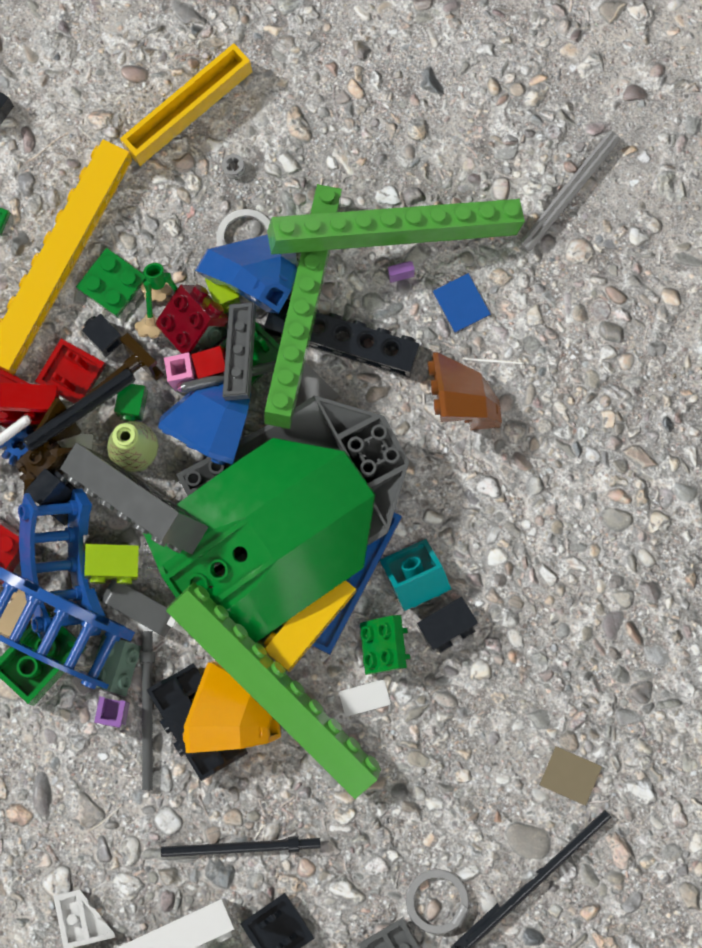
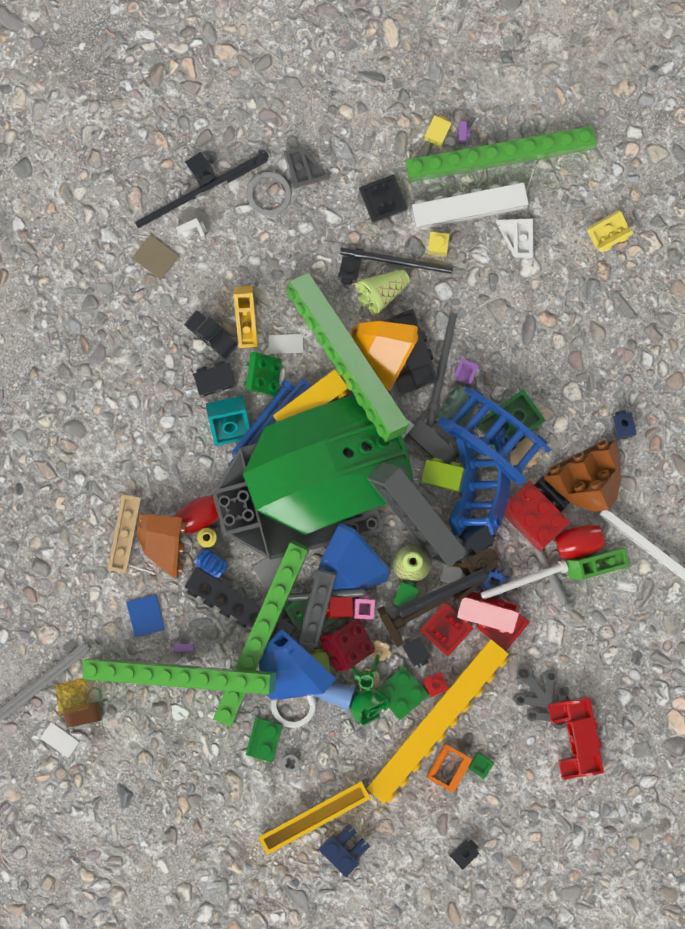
camera: 170 degrees left, 5 degrees up
(18, 200) = (459, 772): none -> orange tile
(69, 300) = (435, 684): none -> red brick
(145, 68) = (338, 855): none -> dark blue brick
(153, 249) = (367, 705): none -> green cylinder
(185, 258) = (339, 695): none -> medium blue plant
(186, 883) = (438, 244): none -> light yellow brick
(250, 799) = (381, 290): none -> yellowish green cone
(272, 186) = (264, 740): none -> green plate
(302, 818) = (349, 270): none -> black bracket
(349, 637) = (286, 386): none -> blue bar
(391, 383) = (211, 563): none -> blue gear
(401, 420) = (213, 538): none -> light yellow brick
(426, 440) = (198, 514): none -> red piece
(427, 721) = (245, 316): none -> yellow slope
(468, 683) = (211, 333): none -> black beam
(508, 161) = (85, 716): none -> reddish brown beam
(514, 396) = (124, 534): none -> tan plate
(527, 178) = (72, 697): none -> clear yellow window
(529, 128) = (59, 740): none -> white sticker
(535, 823) = (187, 229): none -> white bracket
(539, 912) = (200, 169): none -> black brick

